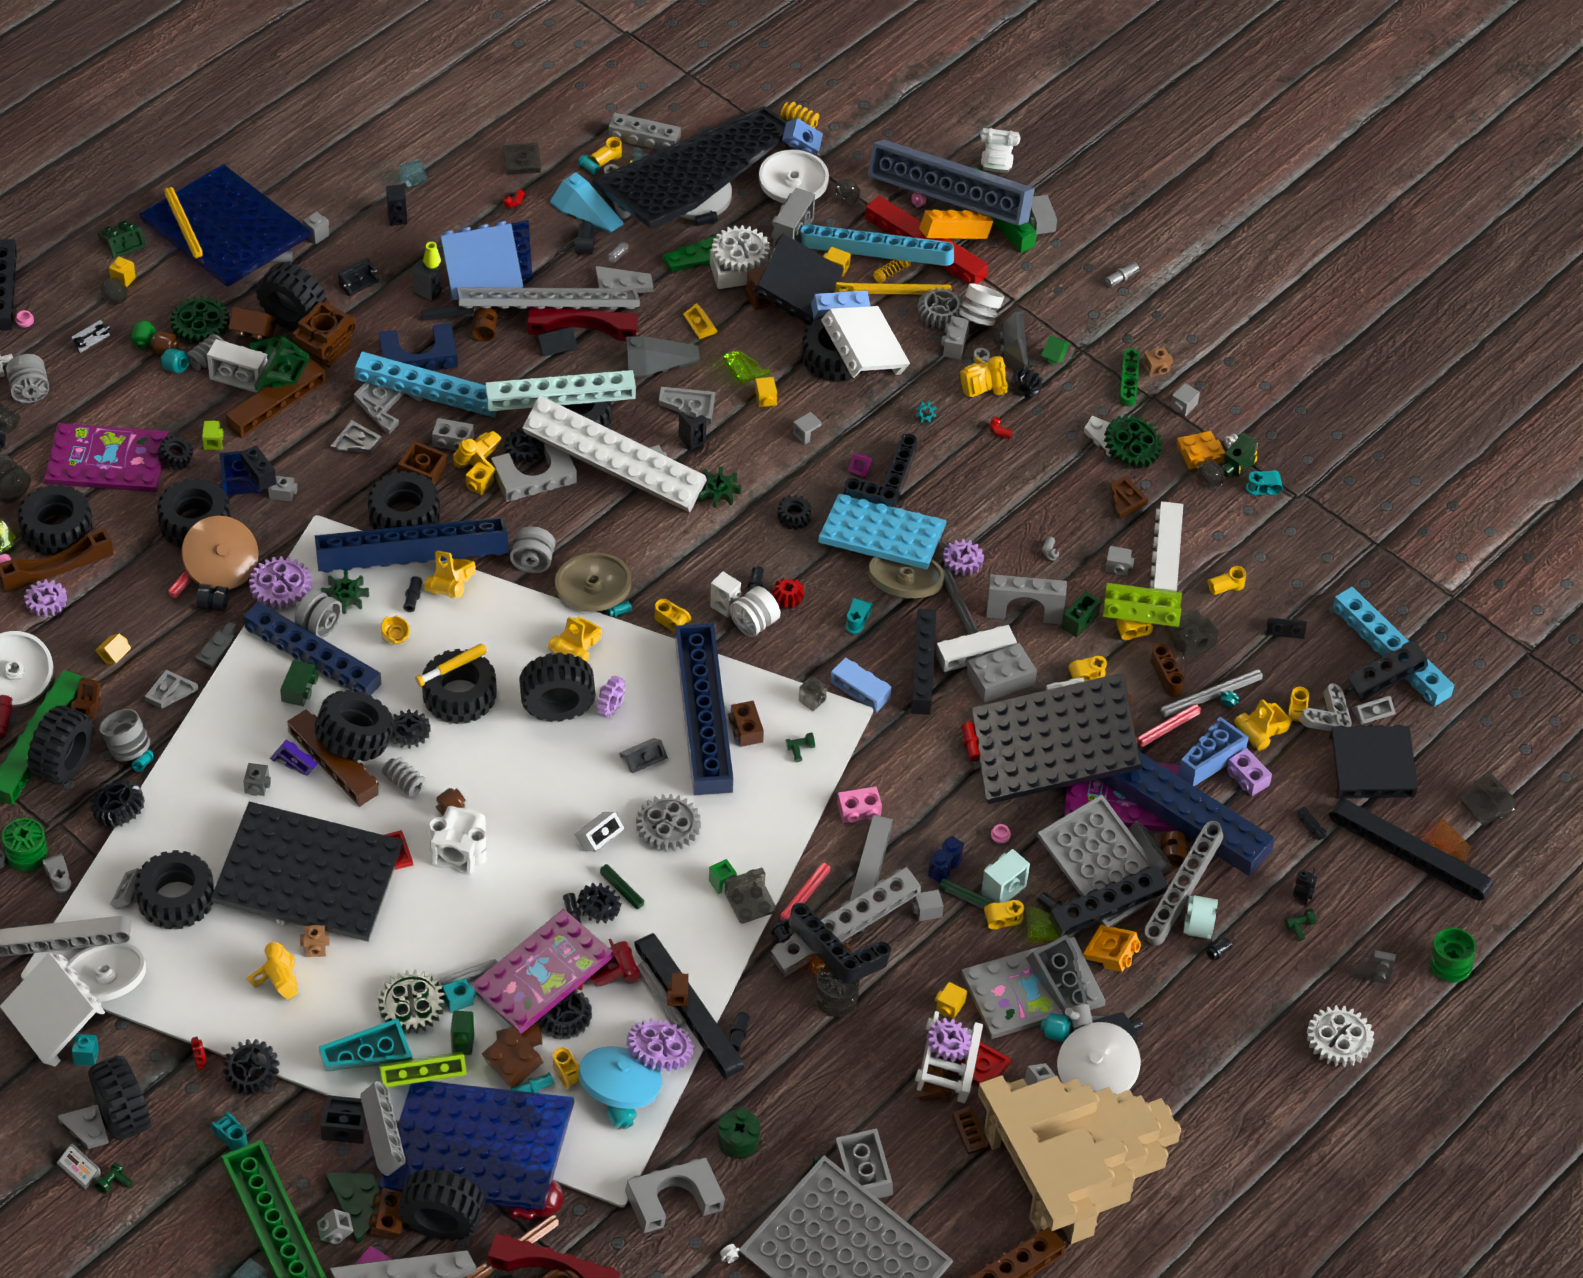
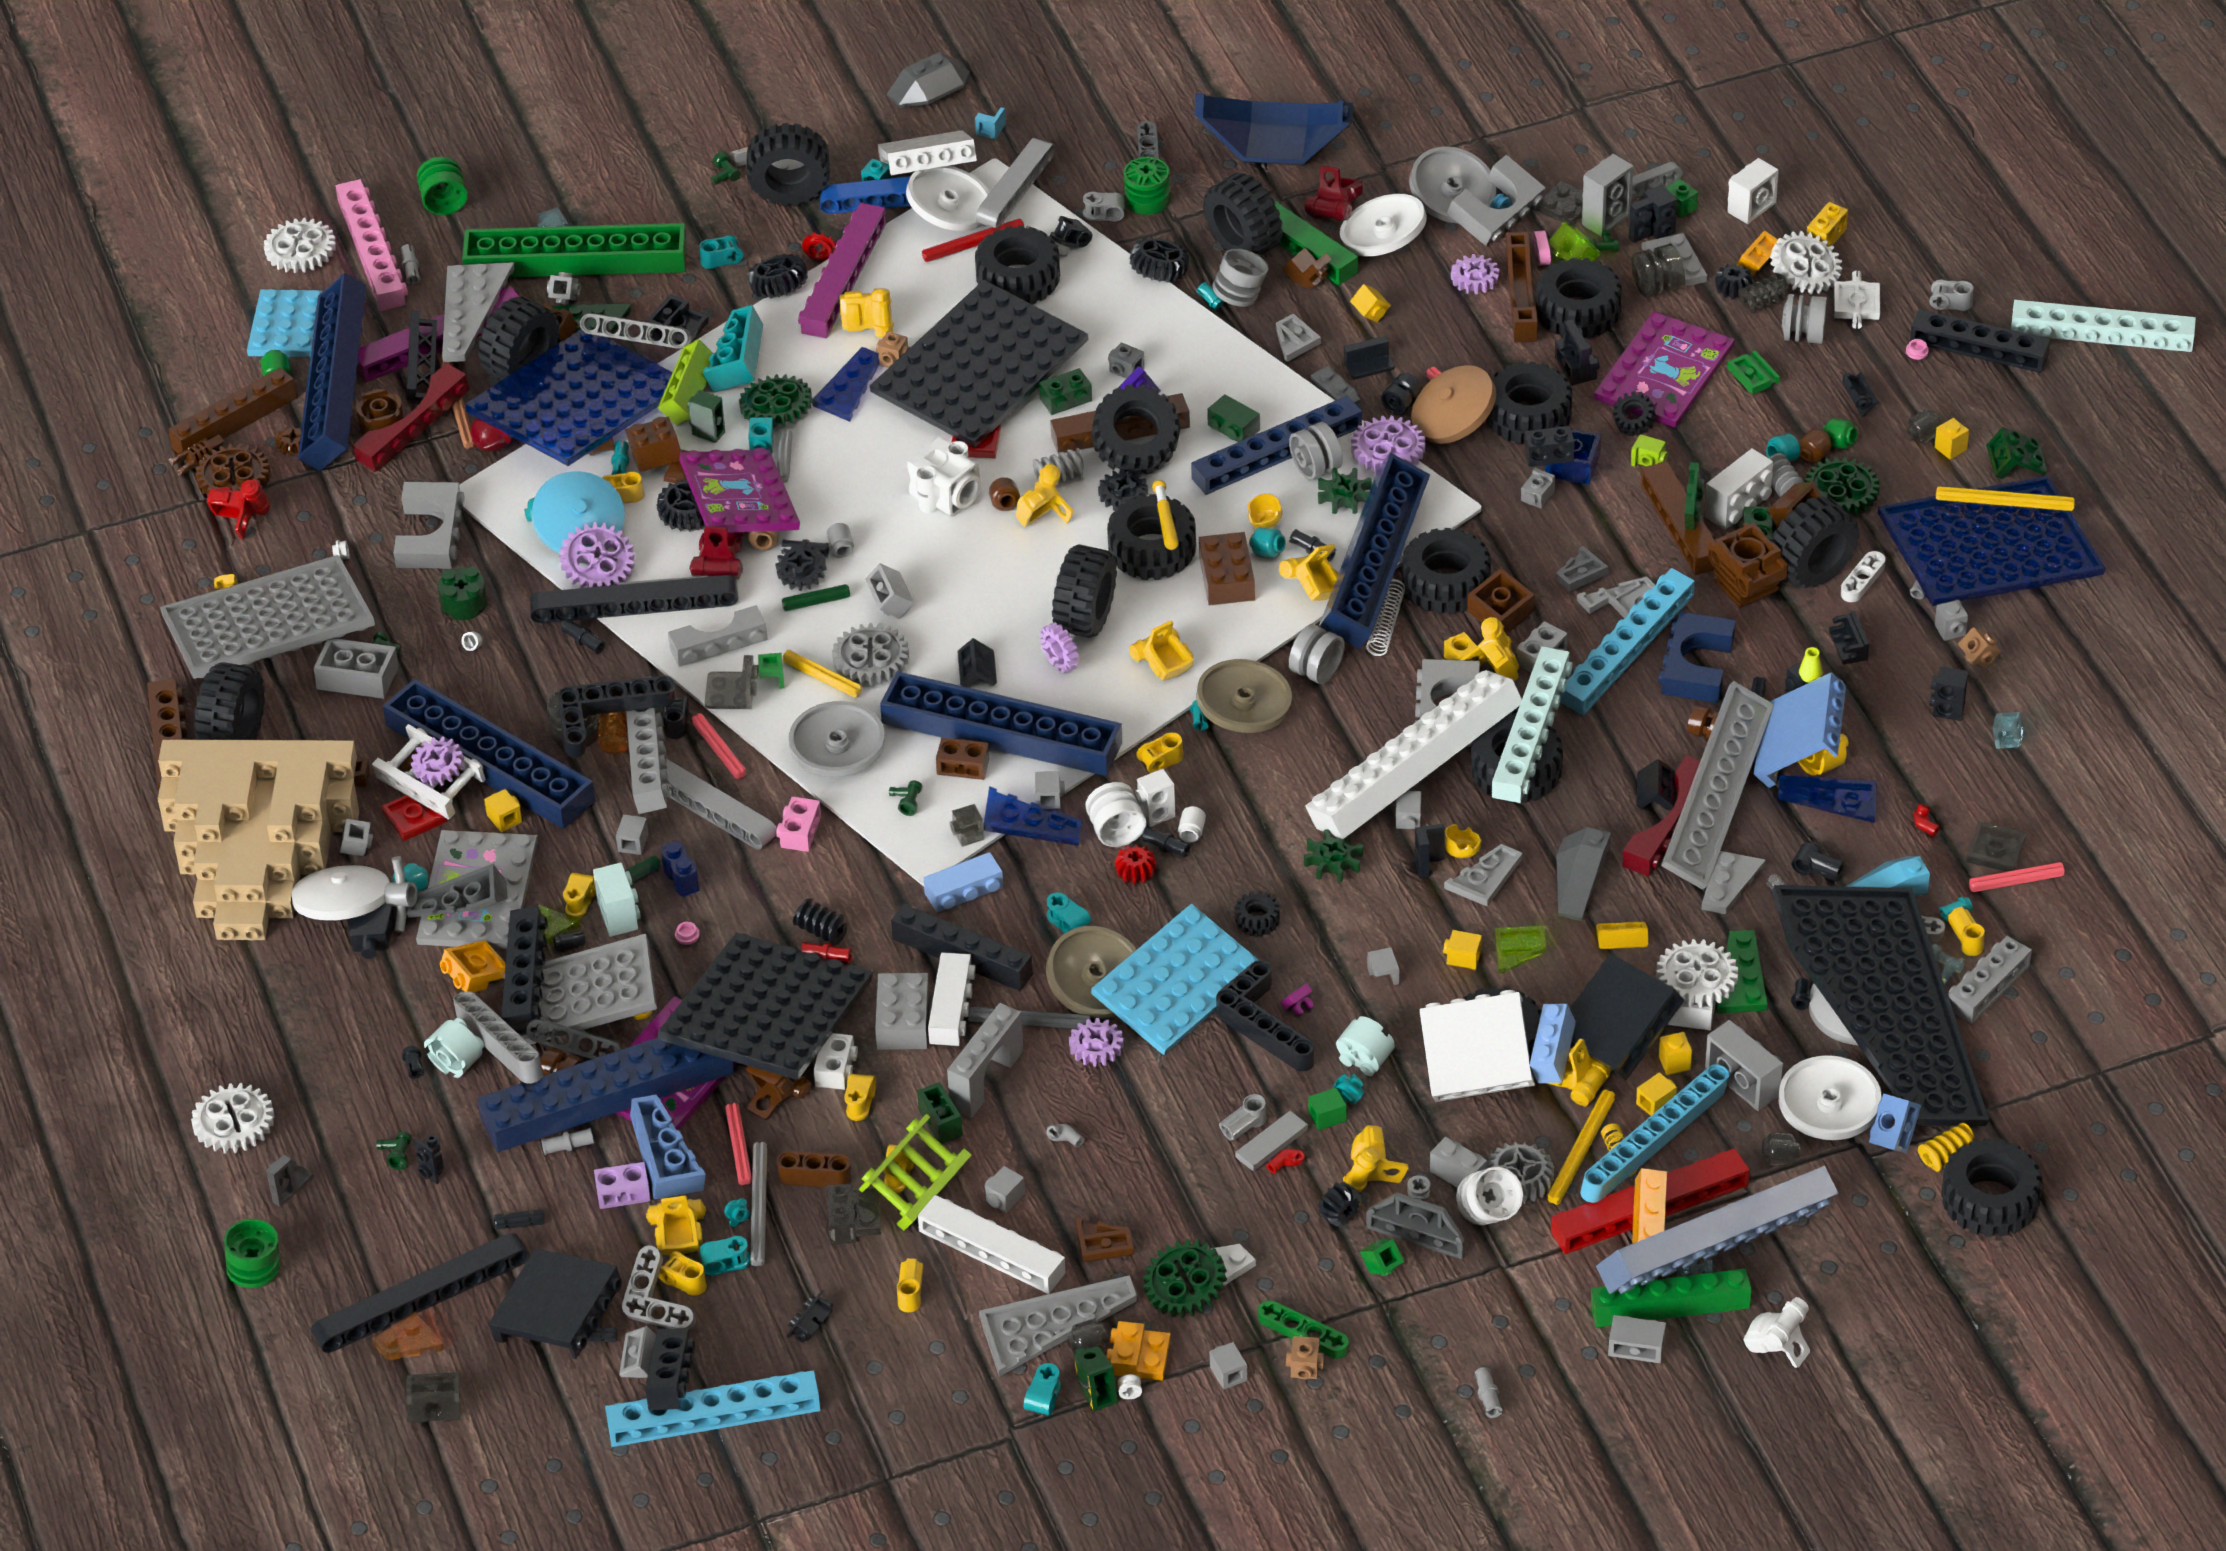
camera: 120 degrees right, 5 degrees down
(91, 402) = (1753, 372): none -> green plate
(109, 1036) = (848, 196): none -> blue beam
(112, 871) = (1071, 233): none -> black piece
(123, 503) = (1576, 355): none -> black brick
(153, 953) = (963, 242): none -> red axle
(175, 636) = (1368, 358): none -> black panel
(224, 1020) = (842, 270): none -> magenta brick
(310, 803) = (1065, 391): none -> dark green brick
(338, 205) = (1979, 647): none -> medium nougat brick
(362, 964) = (845, 389): none -> clear blue wing
(425, 619) = (1267, 542): none -> teal head
(451, 769) = (1043, 498): none -> yellow piece
(467, 629) = (1226, 568): none -> reddish brown brick
(534, 137) = (2016, 877): none -> coral axle
(552, 892) = (840, 539): none -> light grey brick
(667, 421) = (1461, 842): none -> yellow hair
(678, 990) = (642, 578): reddish brown brick -> none
(683, 914) = (693, 645): none -> light grey arch
(701, 849) = (822, 673): none -> yellow axle
(734, 571) = (1191, 824): none -> white brick
(750, 661) = (1048, 789): none -> light grey brick
(773, 802) = (836, 739): none -> light grey dish
(783, 666) = (1017, 818): none -> clear blue wing
(784, 1106) = (471, 641): none -> white hinge
(824, 72) = (1989, 1212): none -> black tyre
(888, 410) = (1364, 1045): none -> light aqua brick
(903, 1033) = (506, 760): none -> dark blue brick
(947, 753) = (820, 921): none -> black piece
(950, 416) = (1327, 1109): none -> green panel
(974, 455) = (1250, 1115): none -> light grey piece
(974, 1213) = (230, 703): none -> black tyre
(987, 442) = (1271, 1141): none -> light grey tile
(1207, 502) = (1035, 1325): none -> light grey wing
(1269, 690) = (722, 1255): none -> teal piece

